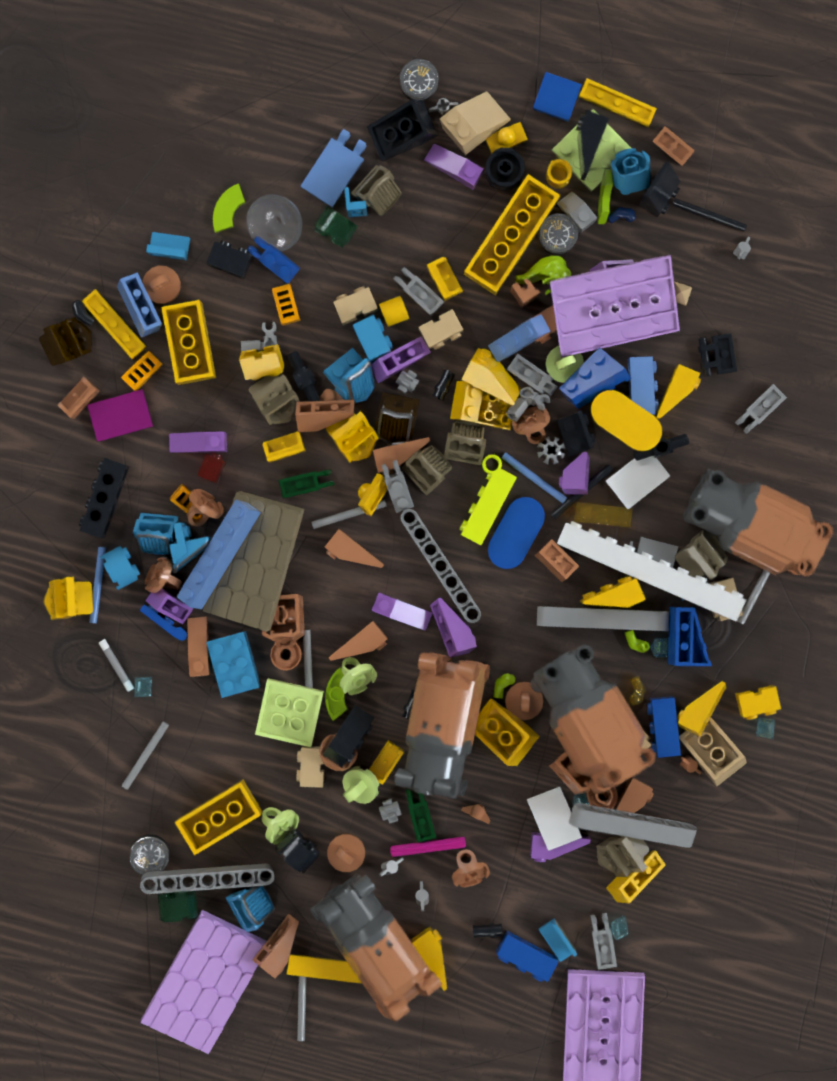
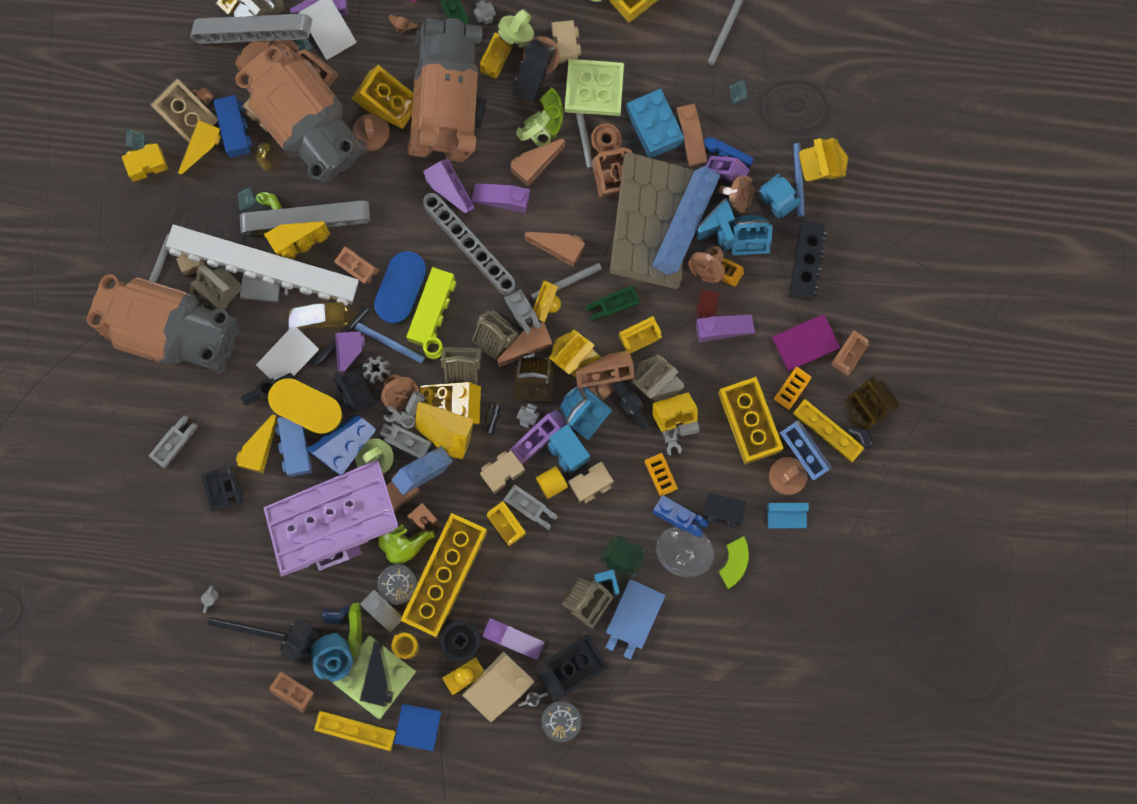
camera: 175 degrees right, 10 degrees down
(116, 665) = (767, 108): light grey bar -> none
(501, 683) = (394, 145): lime arm -> none
(682, 293) = (265, 546): tan slope -> none
(685, 639) = (221, 207): blue wedge -> none

